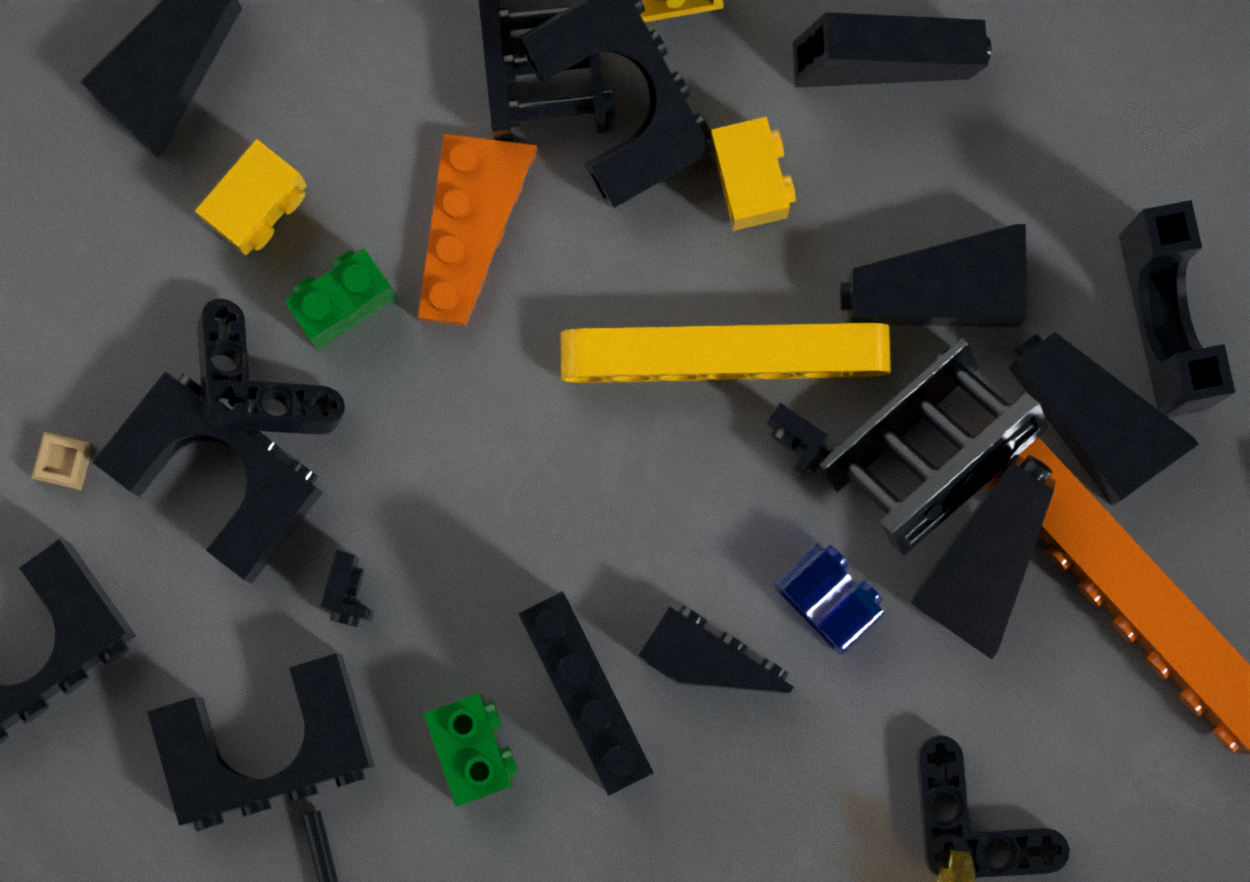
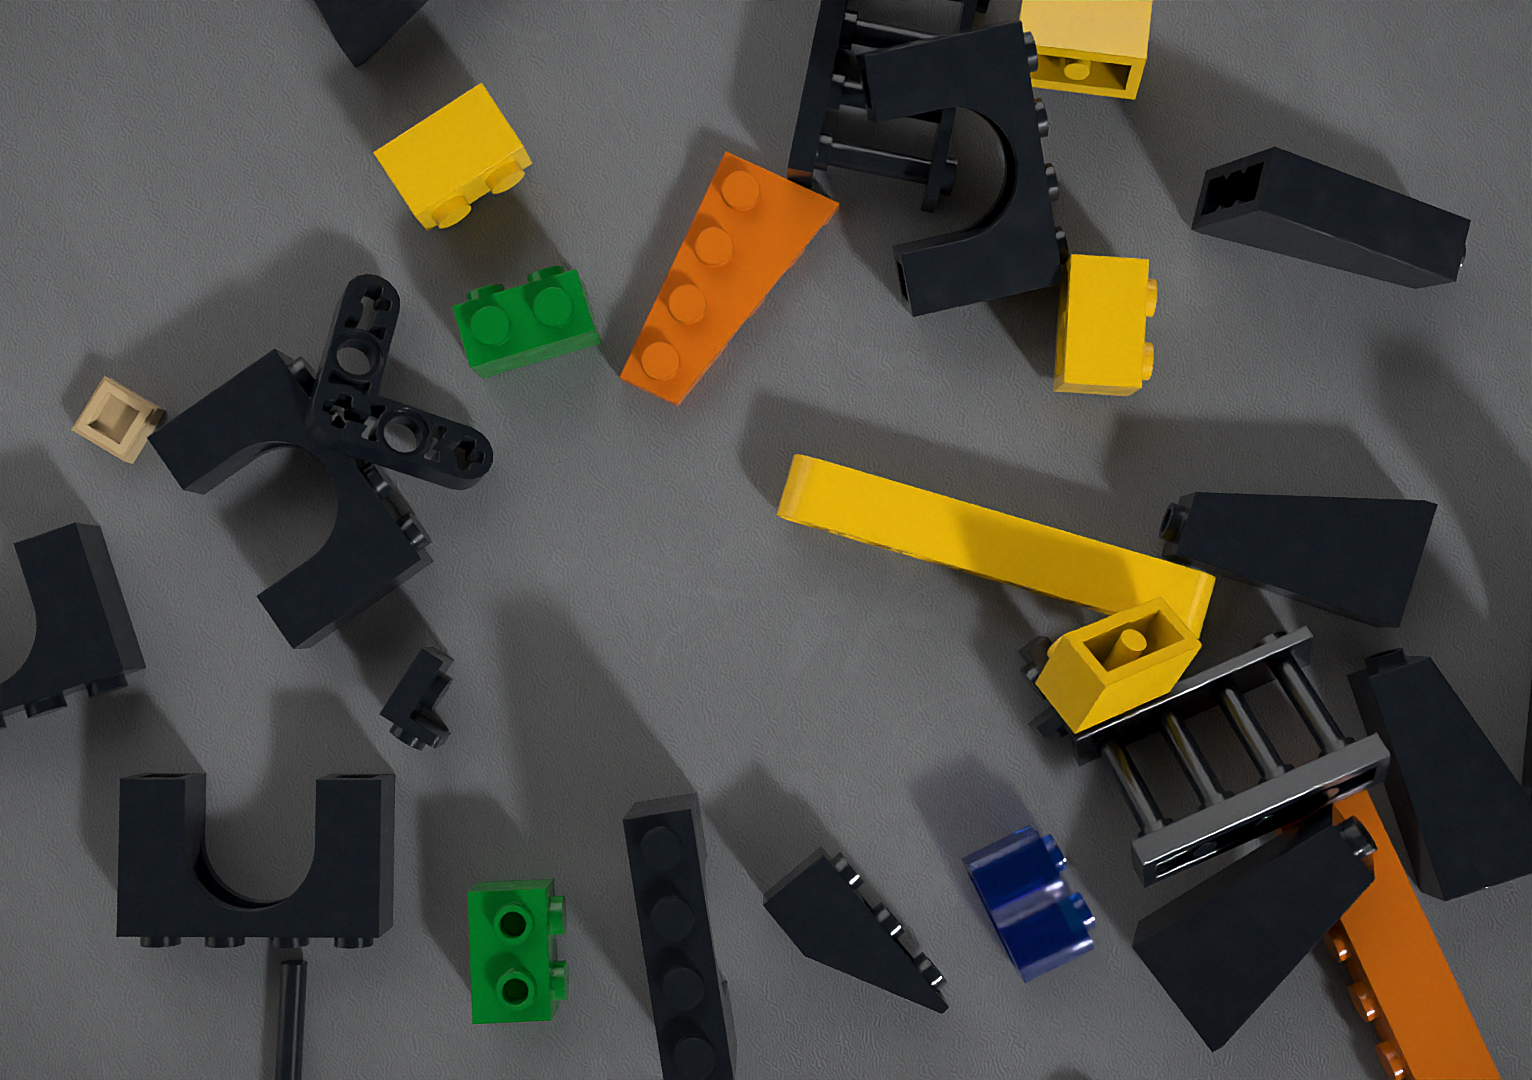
camera: 15 degrees right, 5 degrees up
(832, 402) = (1117, 663): none -> yellow brick

